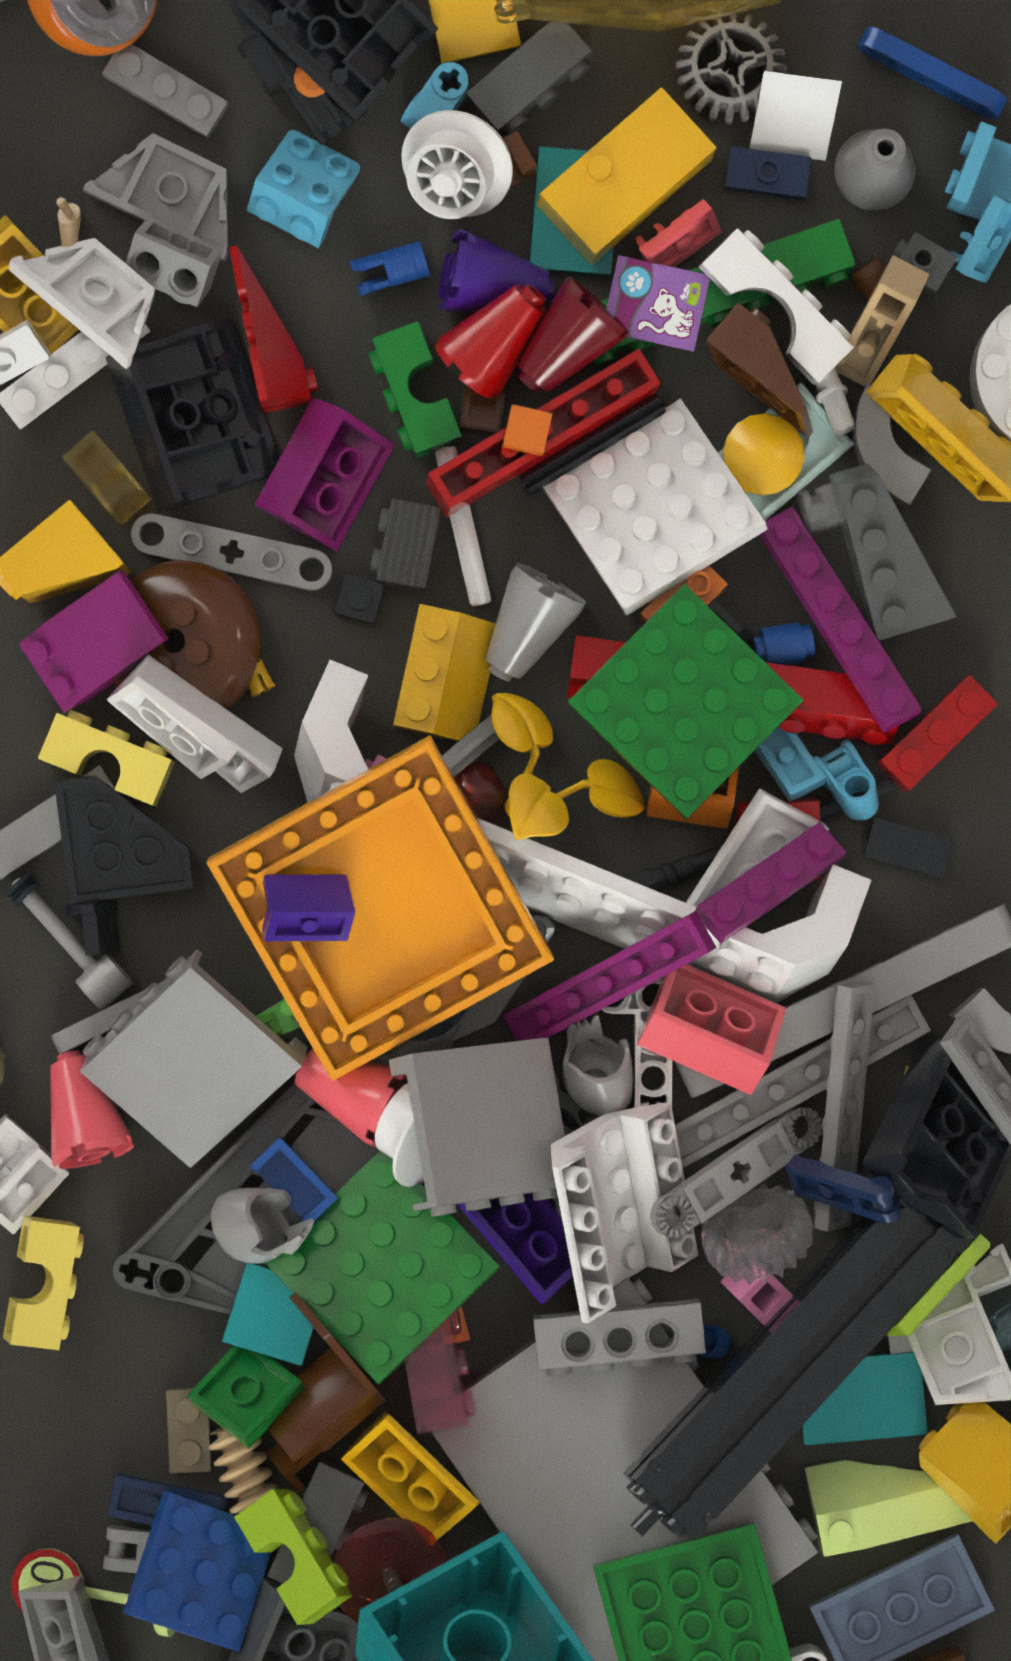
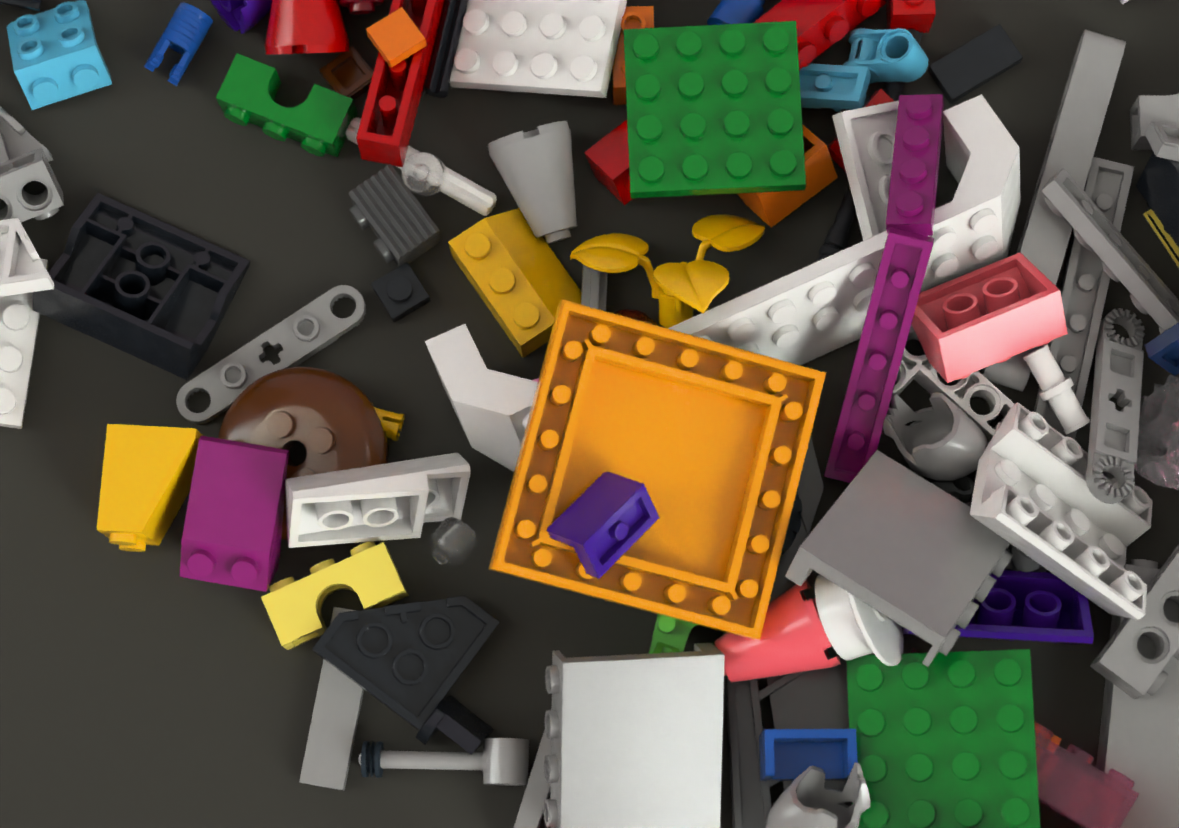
camera: 40 degrees left, 10 degrees down
(106, 477) = (120, 391): clear yellow slope -> none
(218, 804) = (453, 542): none -> clear piece
(275, 360) = (157, 183): red wedge -> none
(325, 473) = (281, 228): magenta slope -> none
(456, 537) = (424, 174): none -> clear piece
(708, 1122) = (1056, 389): none -> white pin

